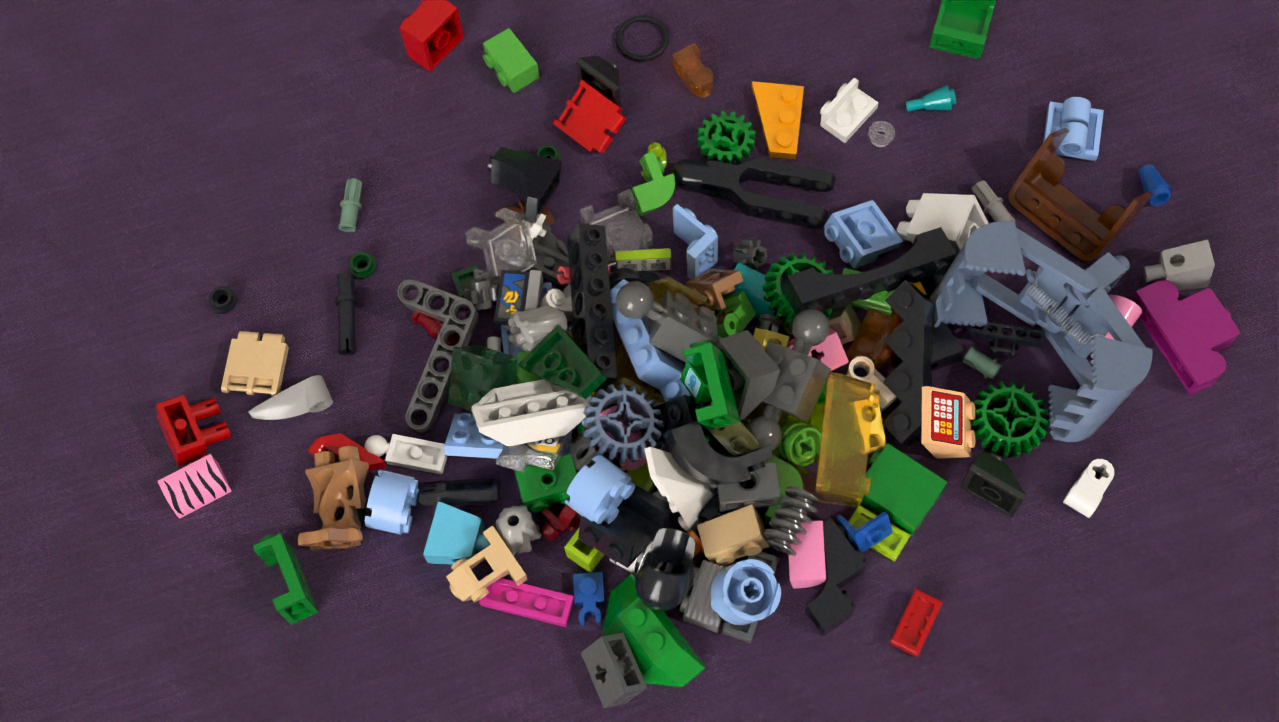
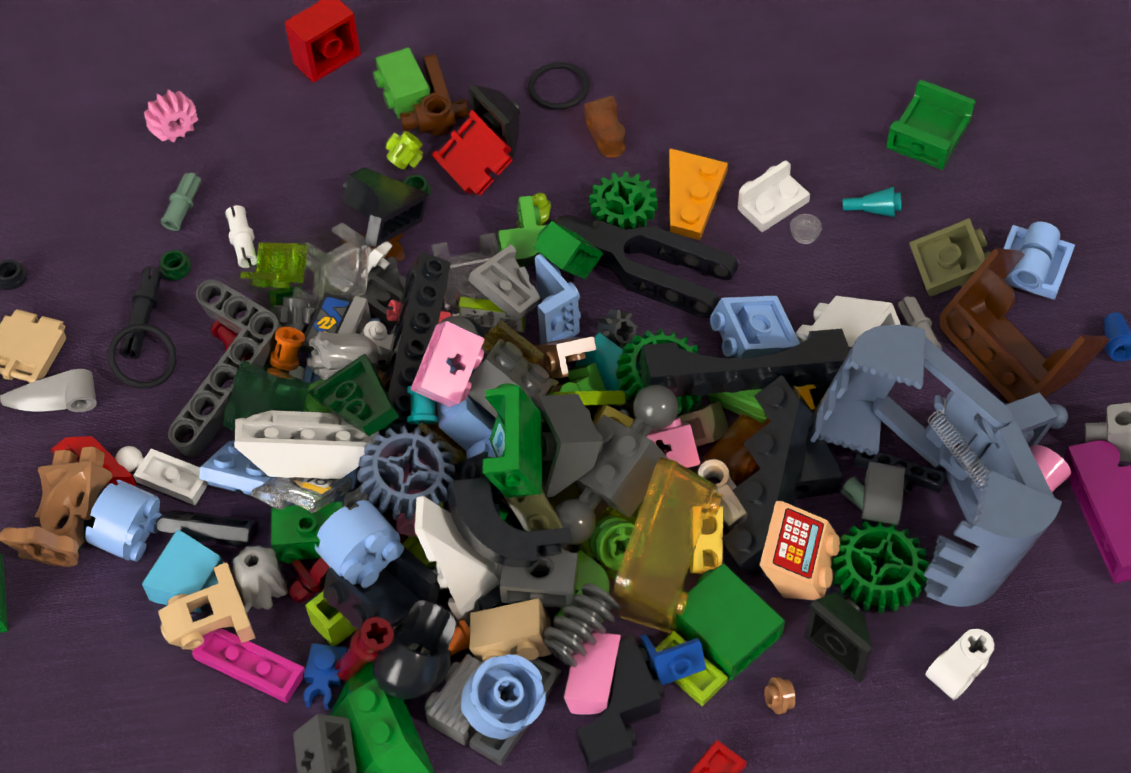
camera: 10 degrees right, 10 degrees down
(320, 128) = (170, 116): none -> bright pink gear
(343, 371) = (135, 327): none -> black piece
(411, 228) = (241, 236): none -> white pin
(454, 251) = (278, 265): none -> clear neon green bracket
(485, 326) = (287, 348): none -> orange bush
(529, 124) = (404, 150): none -> lime gear
(547, 74) = (436, 111): none -> reddish brown piece
(621, 362) = (421, 409): none -> teal bush
(627, 575) = (365, 644): none -> dark red pin
(628, 338) = (433, 374): none -> bright pink brick
(653, 235) = (506, 284): none -> light grey wing
(695, 194) = (567, 250): none -> green brick
(751, 323) = (598, 397): none -> lime tile
(955, 542) = (780, 695): none -> medium nougat plate
(1001, 359) = (883, 493): none -> dark grey beam
(1007, 140) = (949, 256): none -> olive plate

